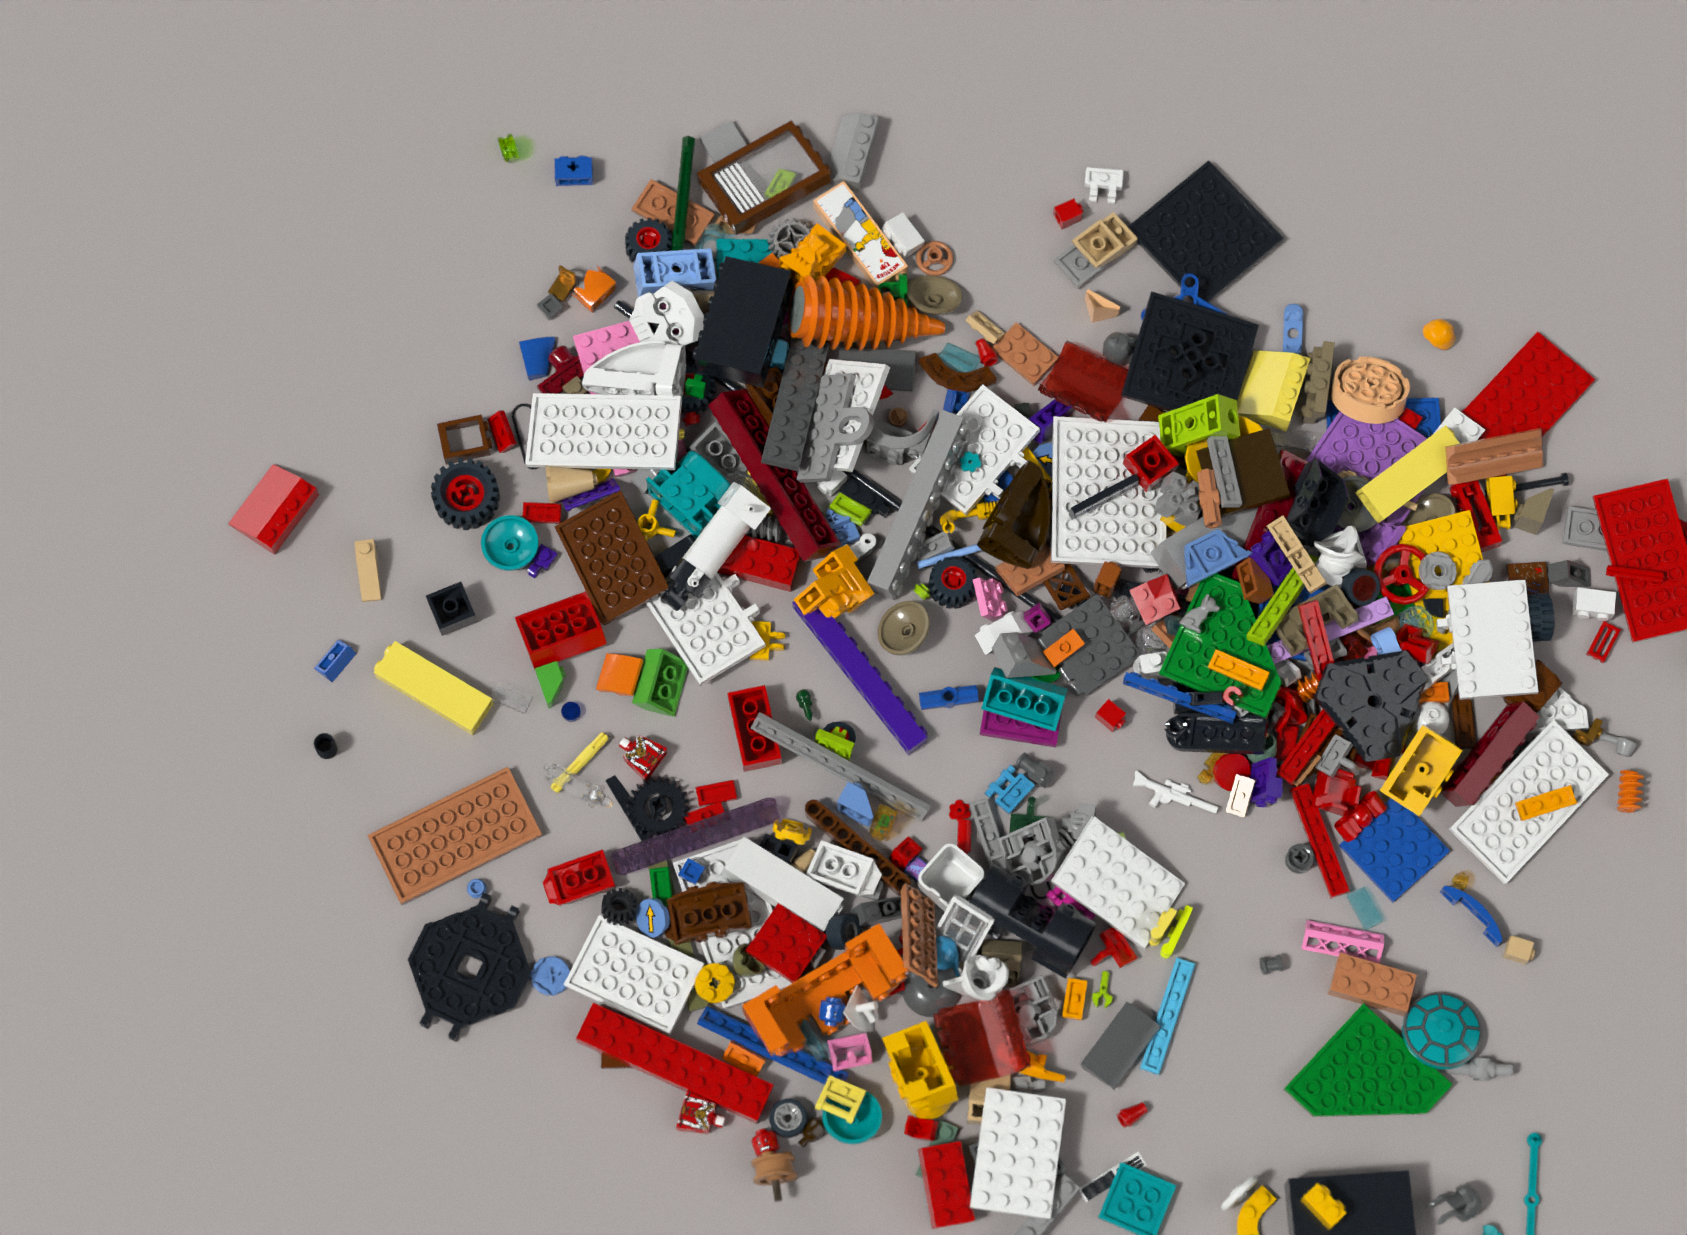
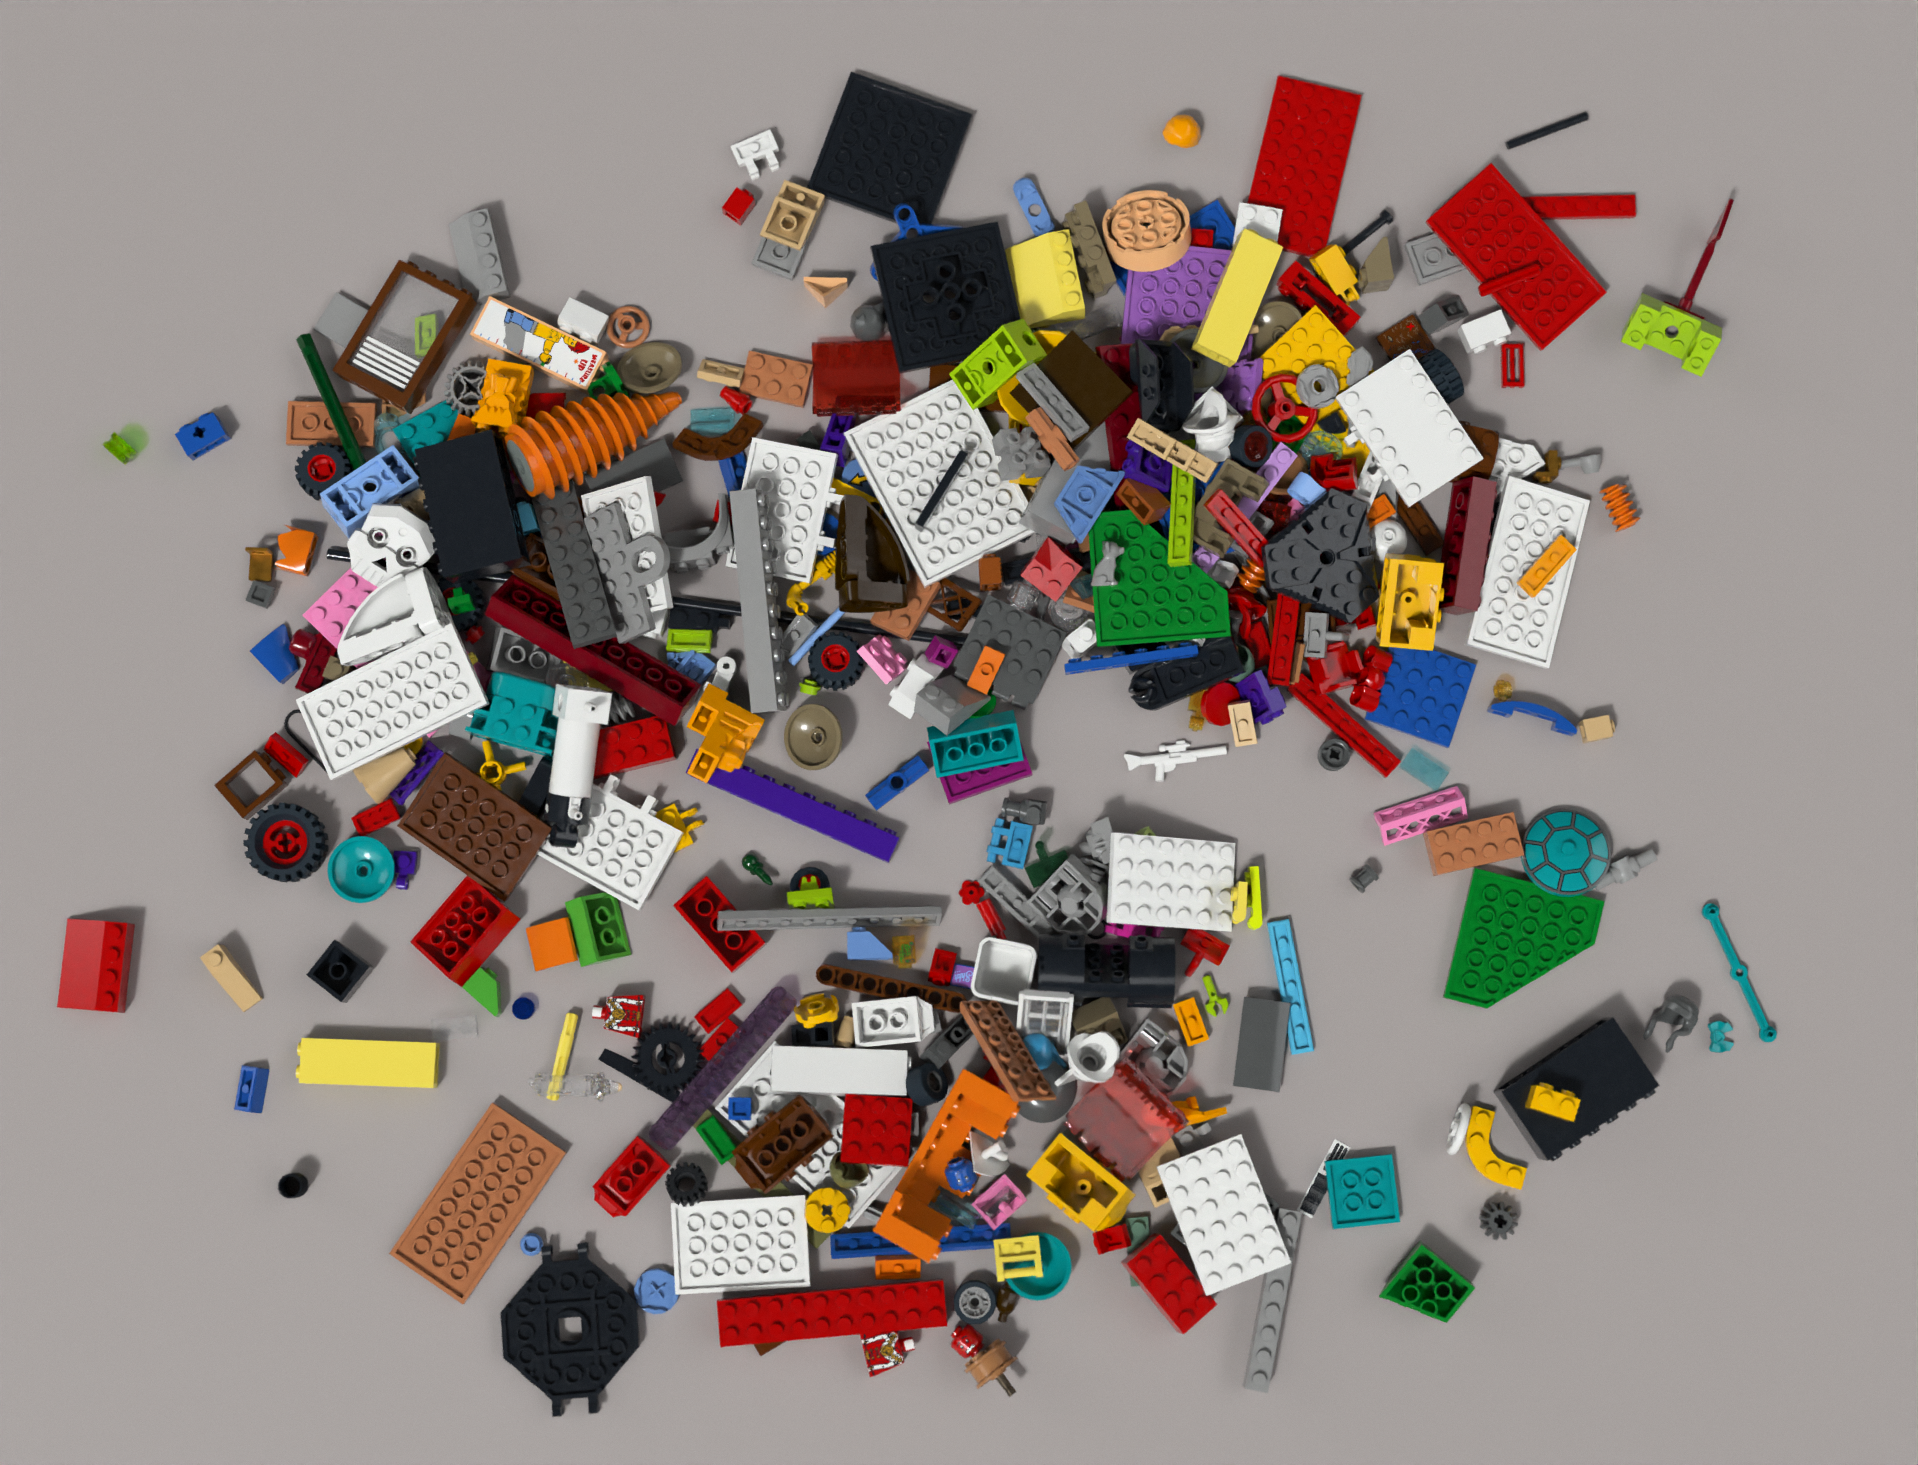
camera: 30 degrees left, 10 degrees up
(652, 917) = (726, 1177): medium blue tile -> none
(898, 417) = (684, 516): medium nougat tile -> none
(970, 457) = (779, 528): teal plant -> none
(987, 964) = (1091, 1043): white plate -> none
(1111, 716) = (1069, 712): red brick -> none
(1131, 1114) = (1308, 1109): red cone -> none
(1150, 463) = (969, 429): red brick -> none
(1215, 697) = (1169, 643): black piece -> none
(1238, 670) = (1178, 602): light orange plate -> none
(1494, 456) = (1308, 234): nougat plate -> none

